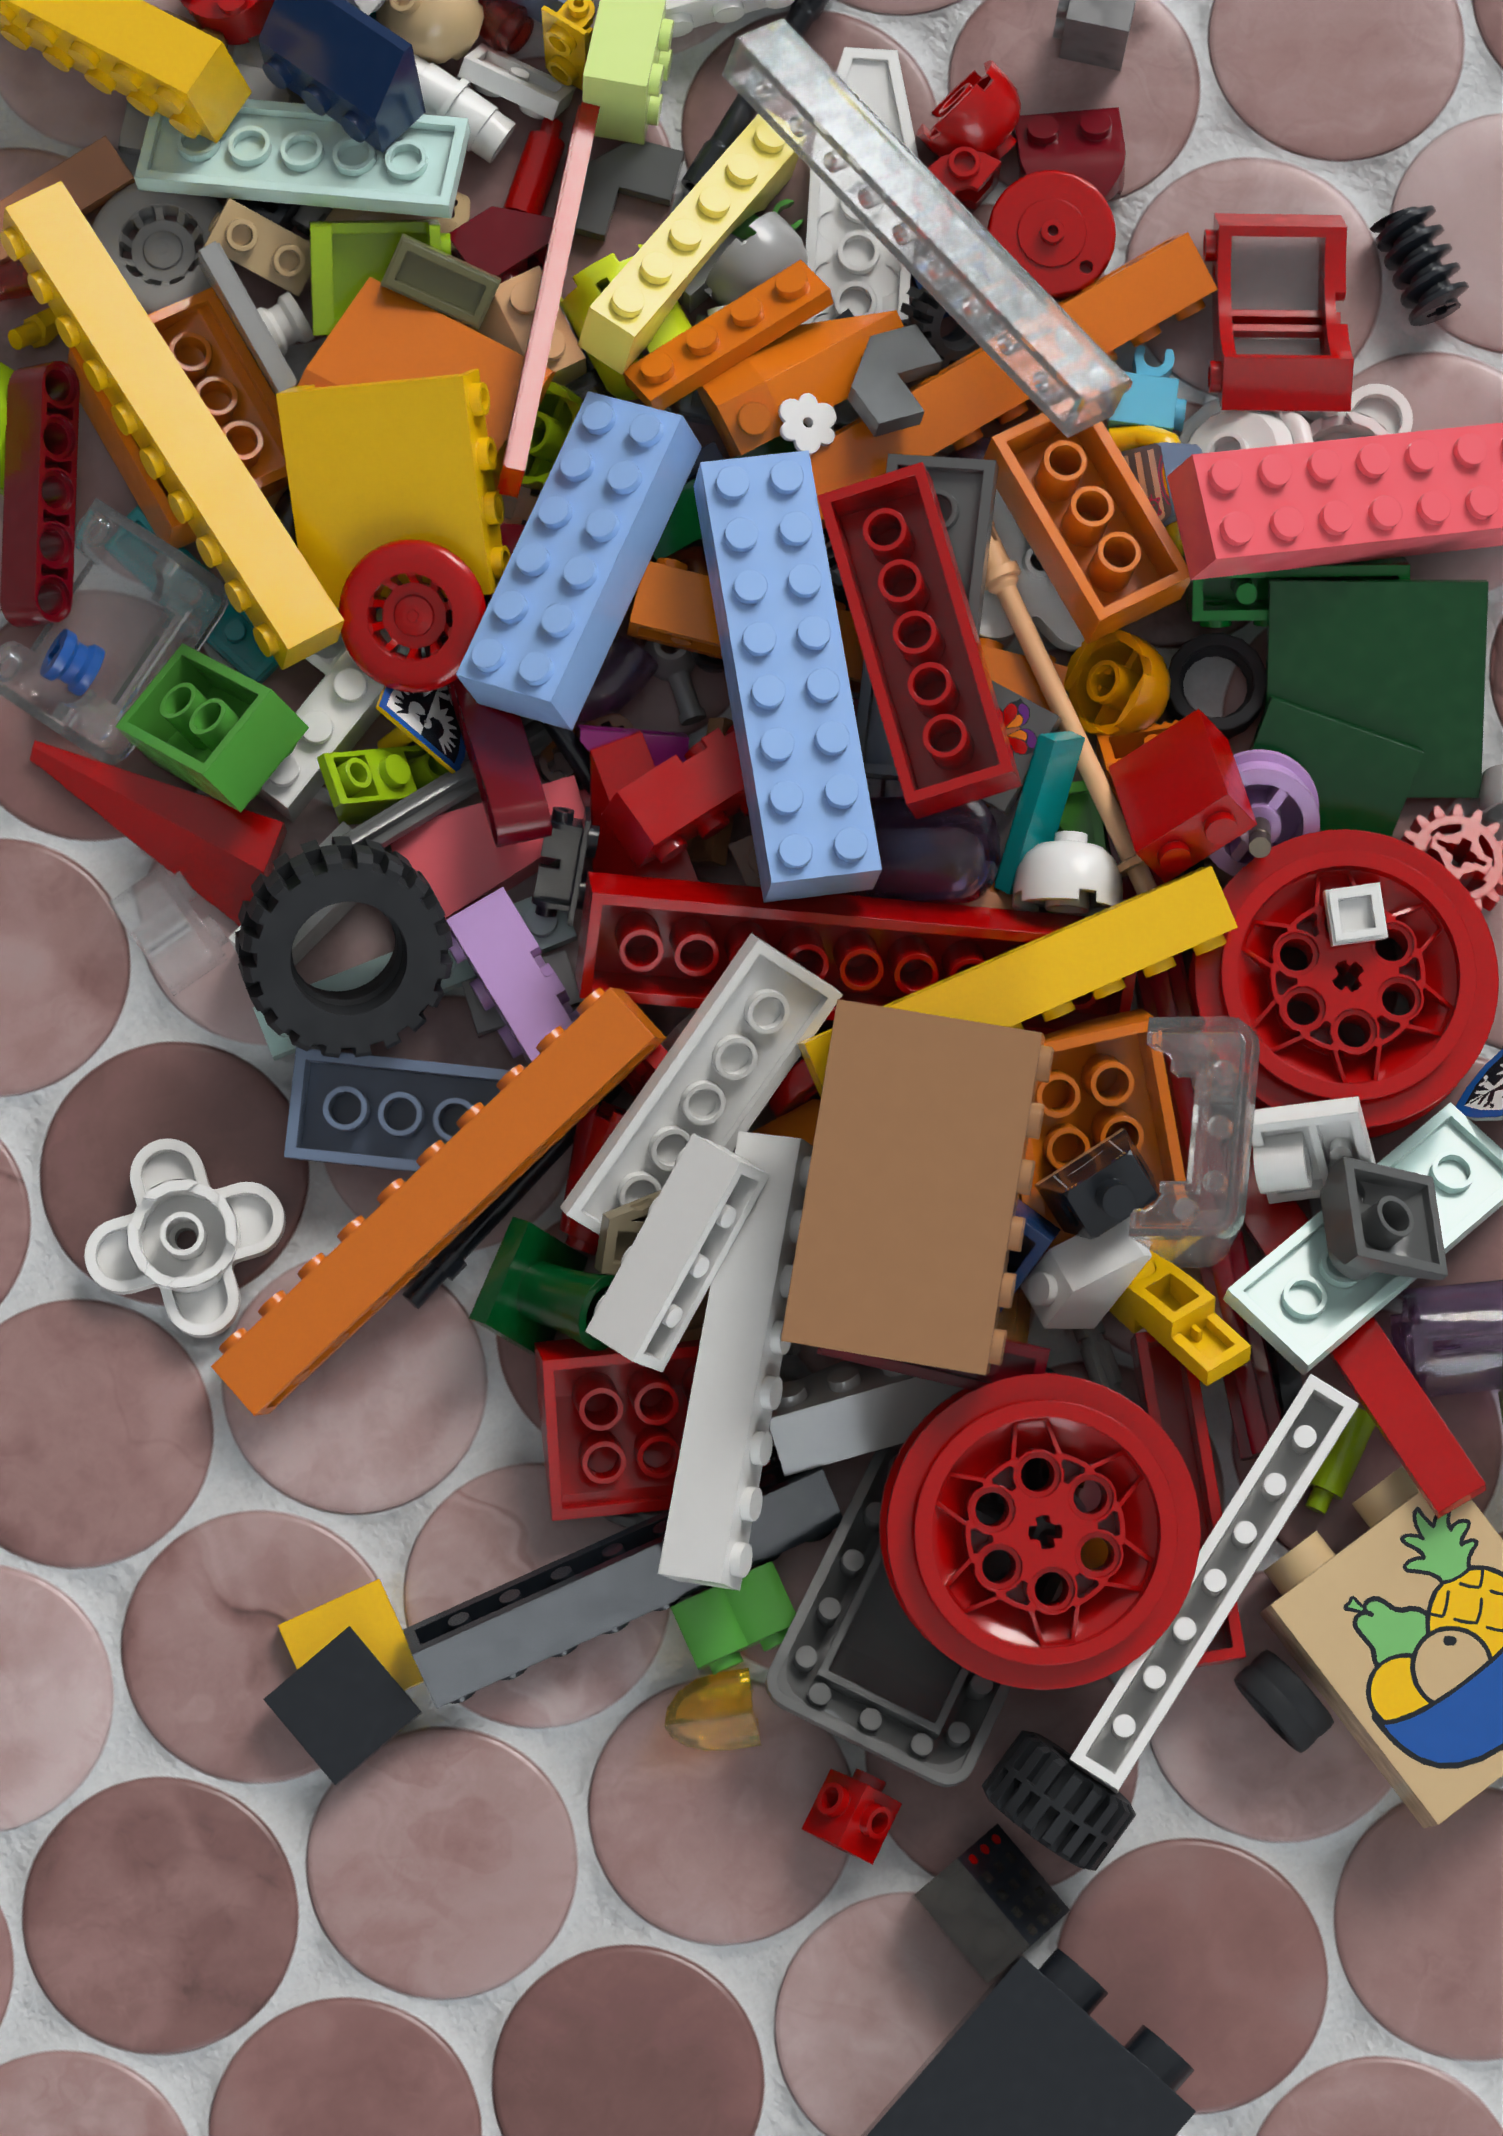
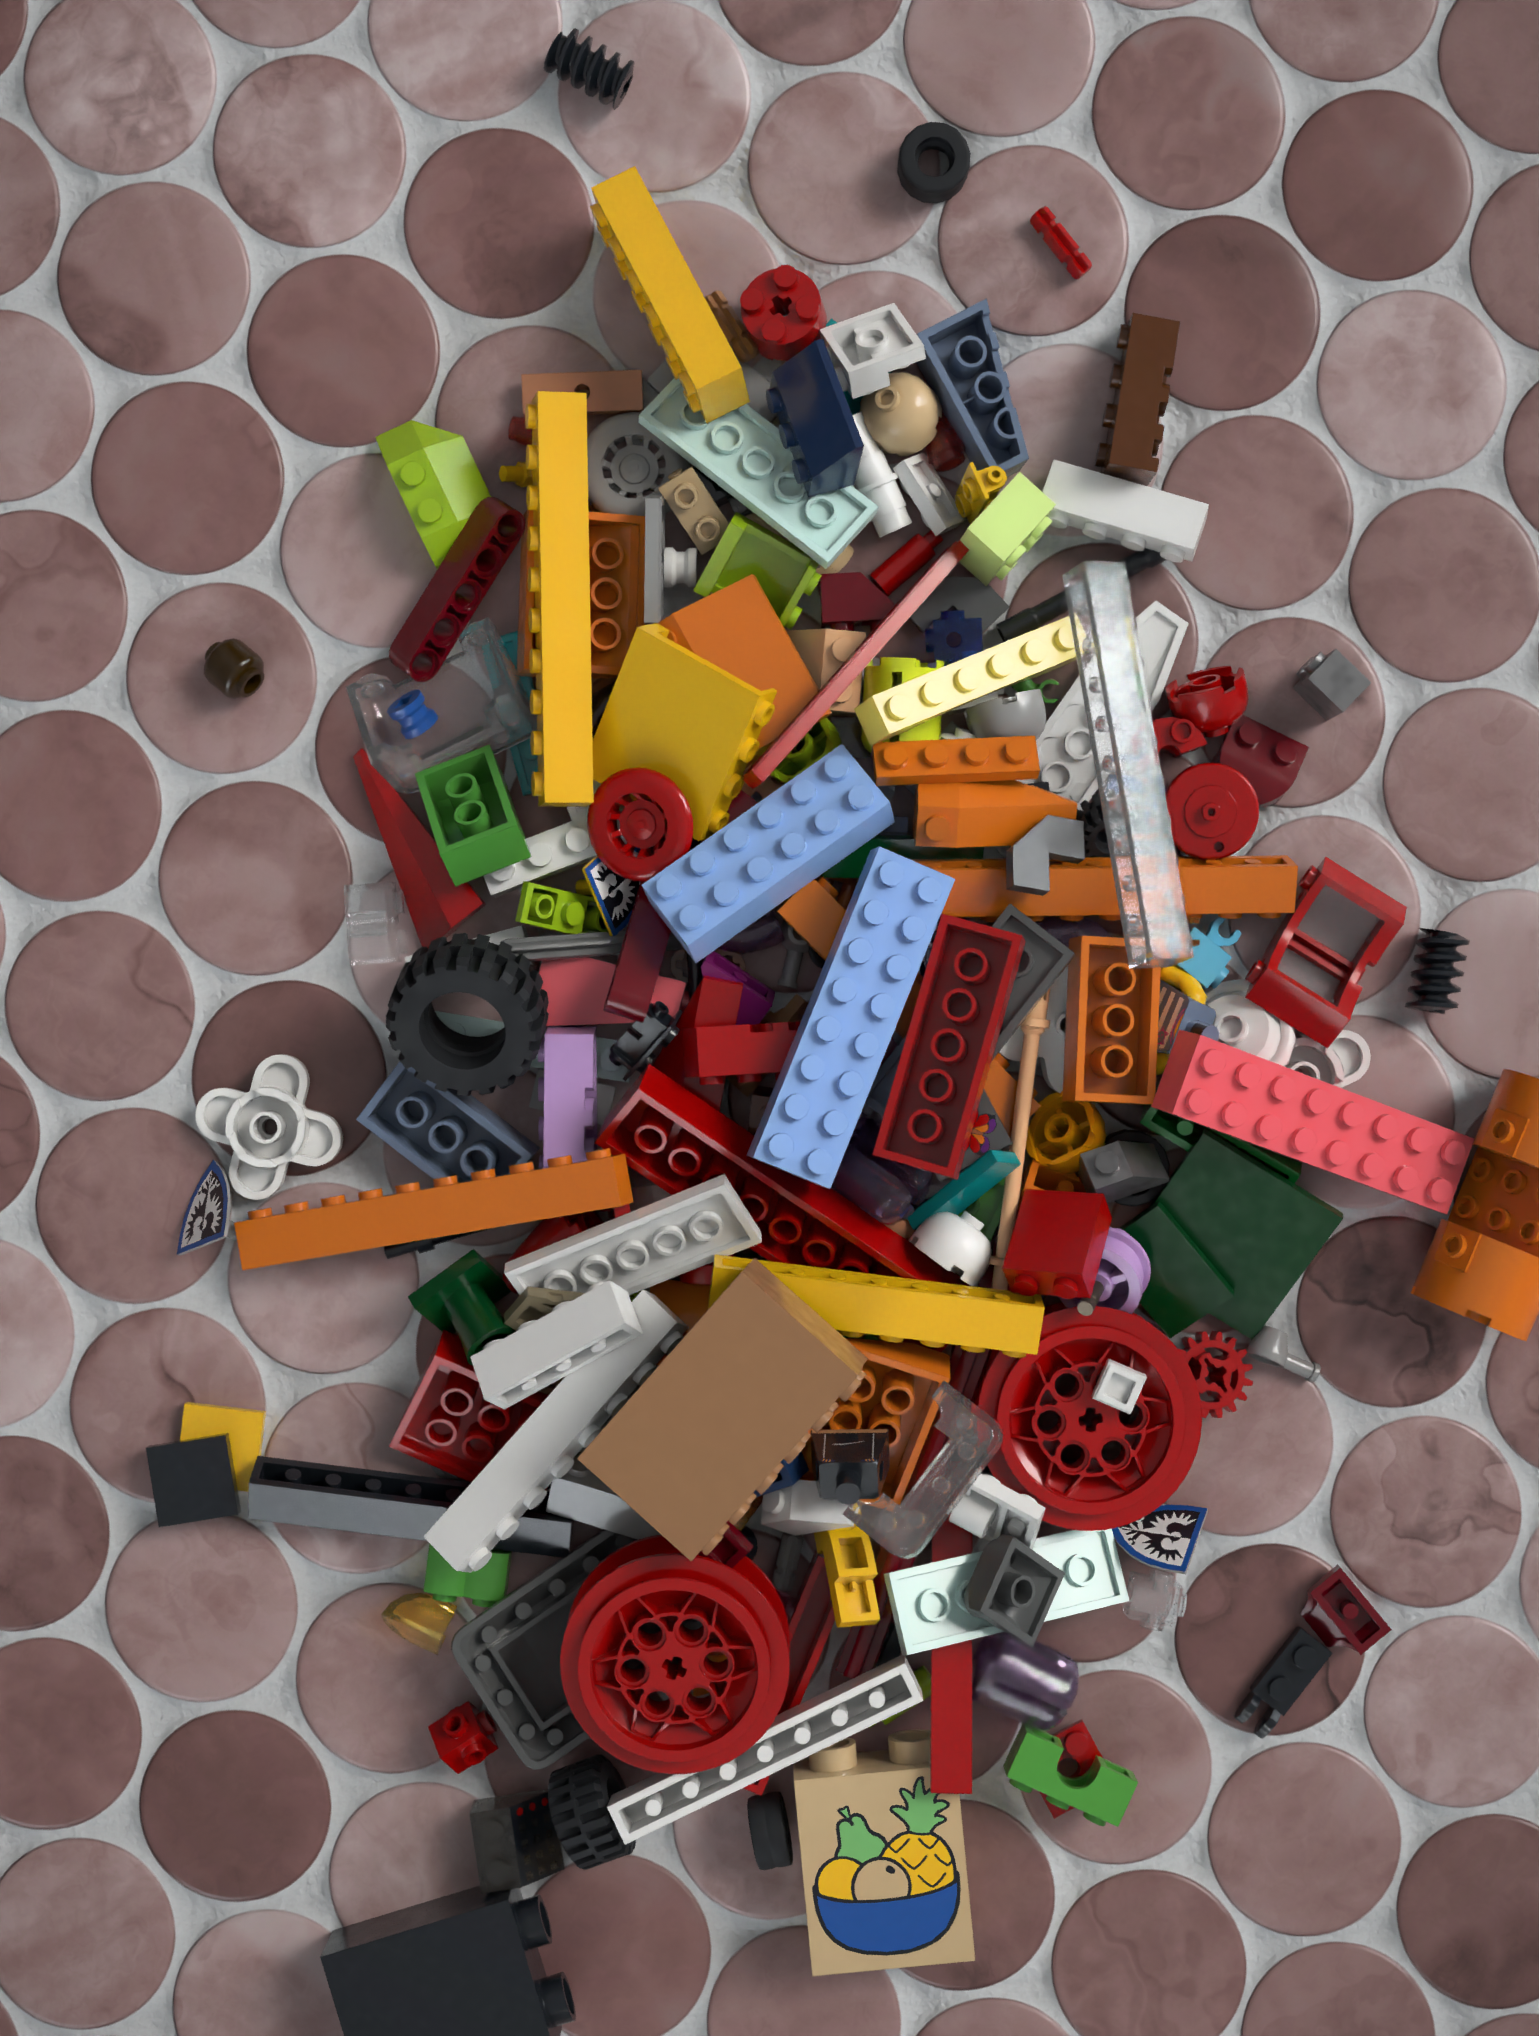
camera: 30 degrees right, 10 degrees up
(173, 1377) = (208, 1212): none -> shield
(440, 281) = (794, 607): olive tile -> none
(649, 198) = (954, 621): none -> clear blue brick
(818, 418) = (979, 851): white plant -> none
(1204, 677) = (1121, 1169): none -> flat silver slope

